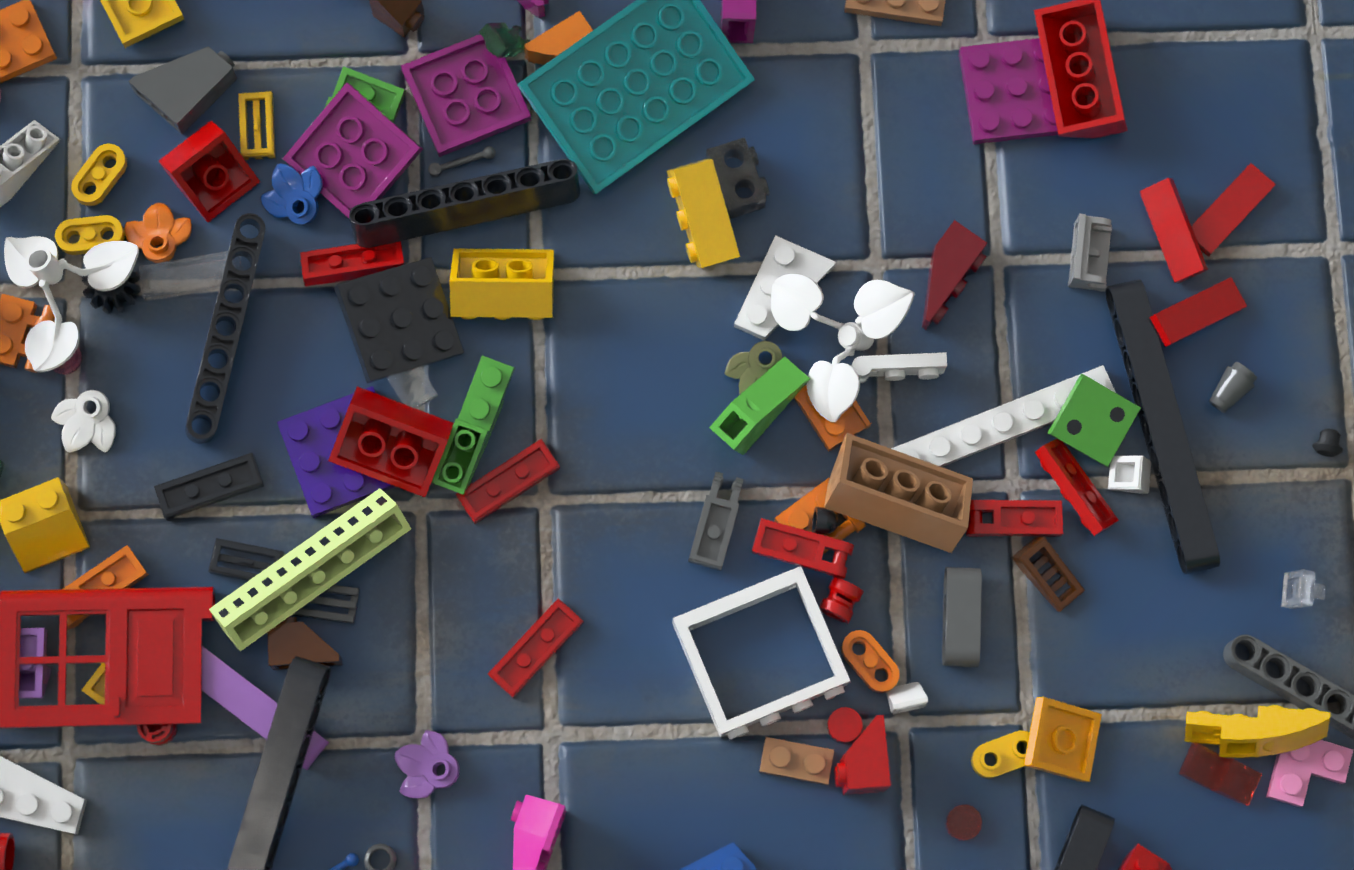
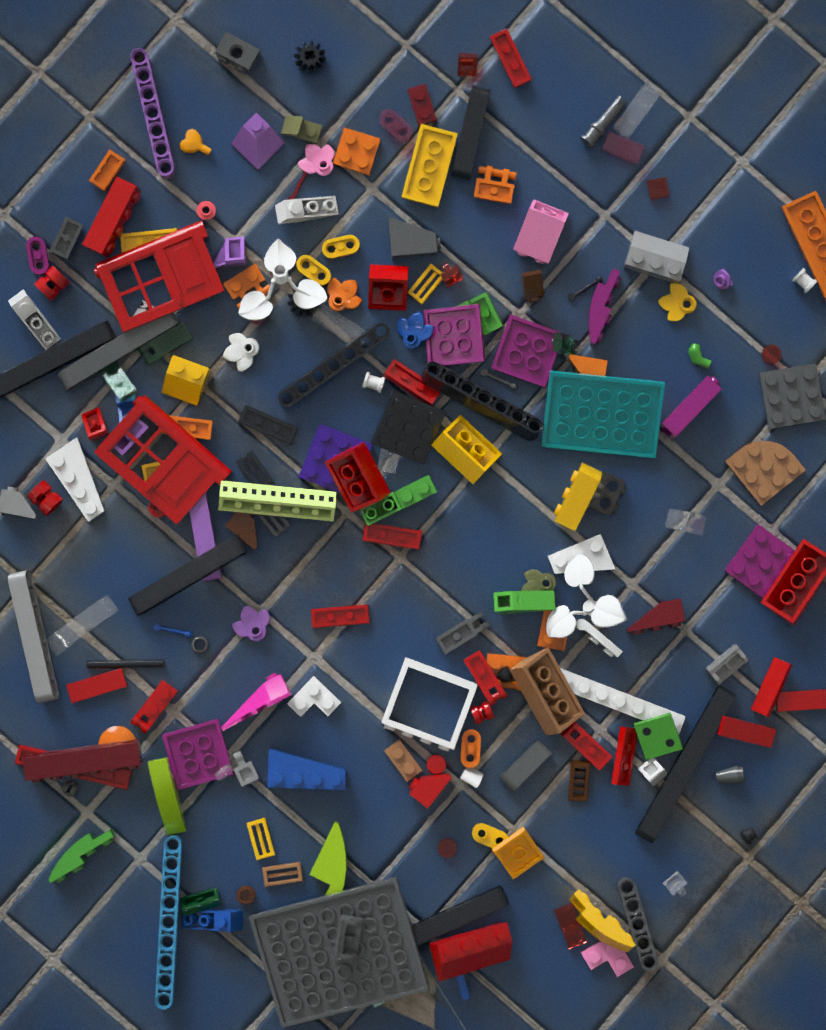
camera: 45 degrees right, 10 degrees up
(278, 84) = (451, 274): none -> clear red tile
(301, 306) = (373, 382): none -> white bush
(594, 782) = (314, 693): none -> white plate
(867, 125) = (686, 521): none -> clear slope

